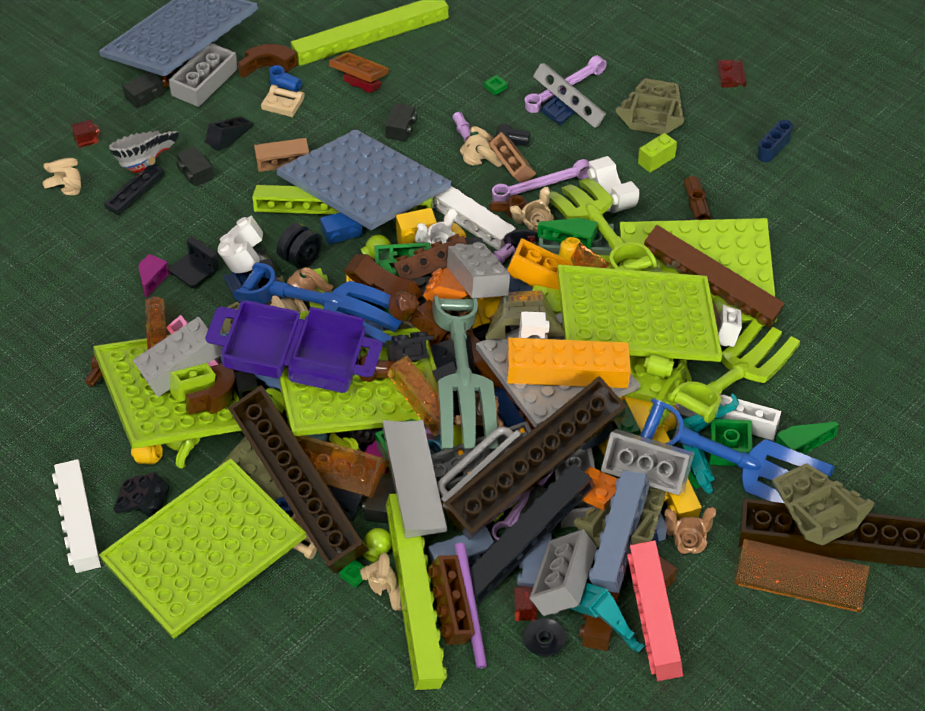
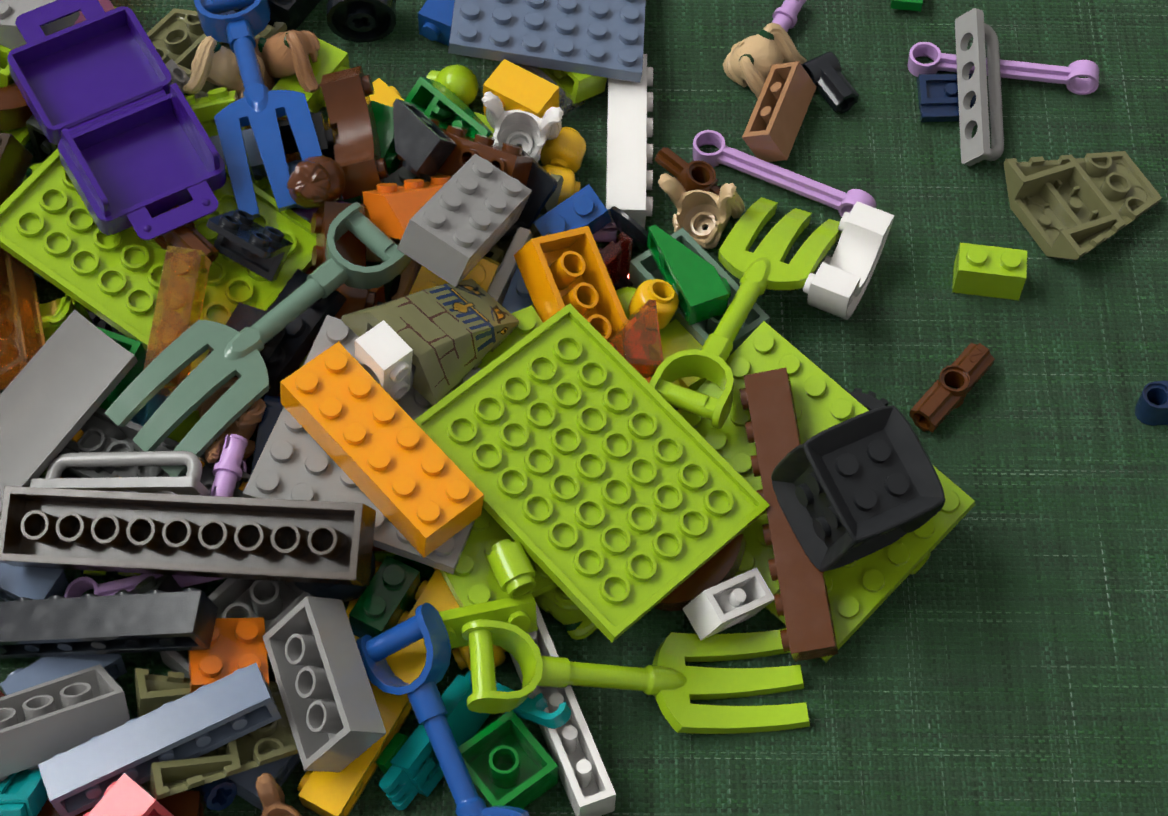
camera: 45 degrees right, 10 degrees up
(416, 262) = (419, 140): none -> black slope
(500, 245) = (577, 211): none -> blue brick
(512, 423) = (228, 469): none -> lavender pin
(739, 237) = (857, 487): none -> black piece

